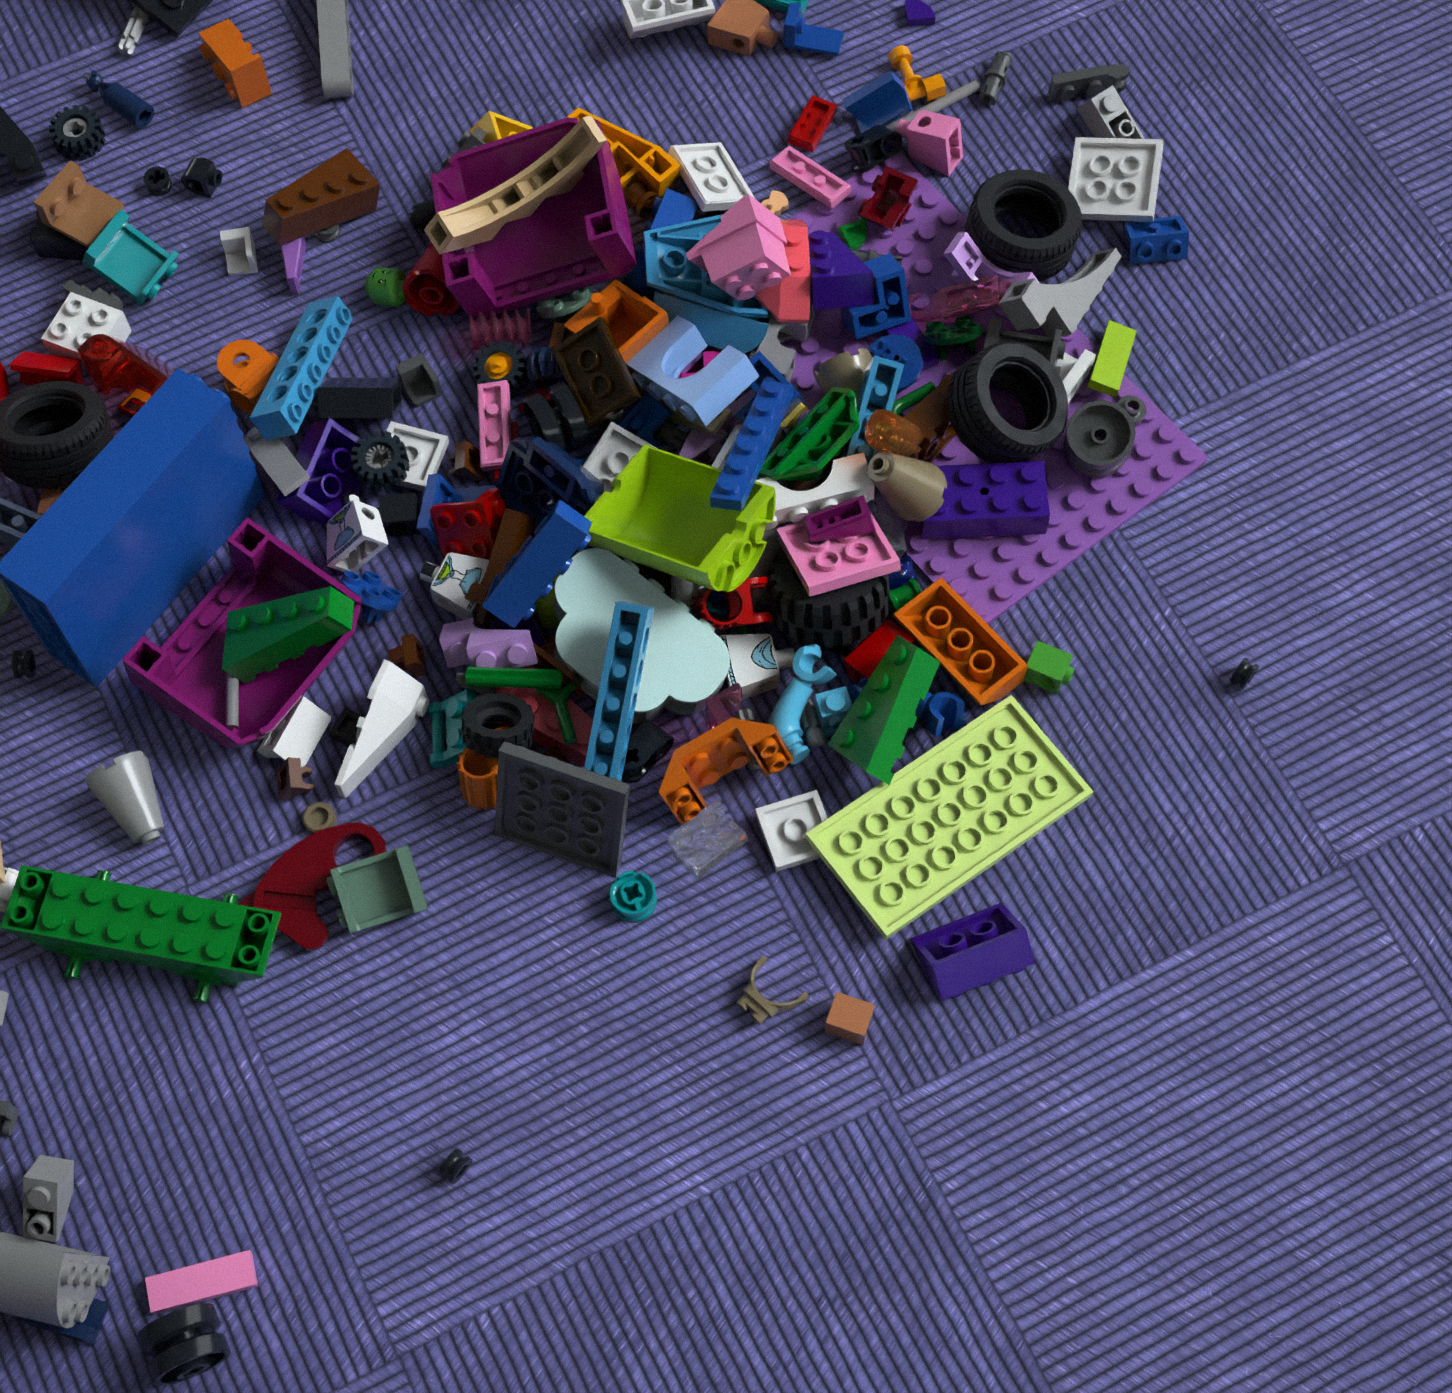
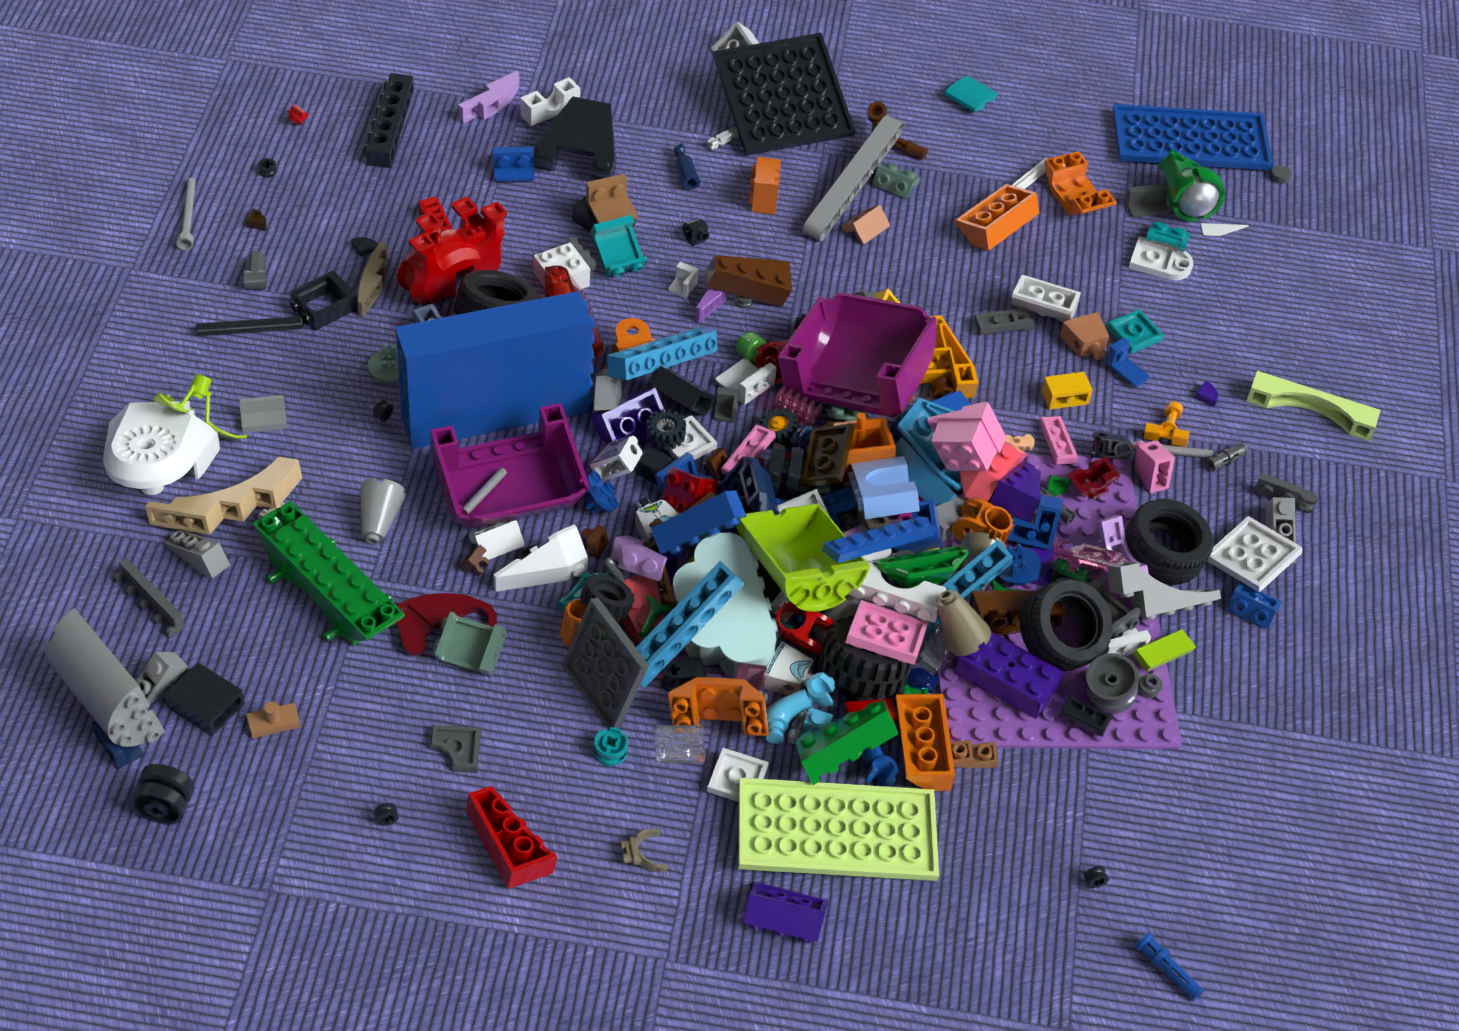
camera: 30 degrees right, 15 degrees down
(41, 368) = (524, 271): red panel -> none
(83, 143) = (652, 176): black bush -> none
(124, 1184) = (204, 698): none -> black brick
(151, 176) = (670, 220): black bush -> none
(201, 1282) = (205, 777): bright pink tile -> none
(226, 1148) = (273, 719): none -> medium nougat tile
(283, 628) = (532, 475): green wedge -> none
(319, 816) = (472, 588): dark tan tile -> none
(389, 38) = (867, 224): none -> panel
(414, 332) = (747, 379): none -> white bracket
(463, 1019) = (459, 745): none -> dark grey tile
(513, 677) = (638, 579): green axle -> none
(519, 196) = (860, 336): tan arch -> none
(619, 1096) = (511, 845): none -> red wedge
(637, 66) = (1004, 321): none -> dark grey plate
(710, 175) = (1001, 398): white tile -> none
(772, 108) = (1066, 390): none -> yellow brick
(812, 123) = (1085, 413): red plate -> none
(831, 335) = (990, 520): none -> orange piece
(849, 1018) = (677, 893): nougat panel -> none
(850, 519) = (902, 617): magenta slope -> none
(879, 102) = (1136, 422): blue panel -> none
(892, 433) = (971, 586): clear orange piece -> none
(1018, 618) = (974, 756): none -> medium nougat slope
(1049, 667) = (971, 791): bright green brick -> none
(1096, 494) = (1085, 716): none -> black plate
(1371, 721) = (1158, 955): none -> blue pin

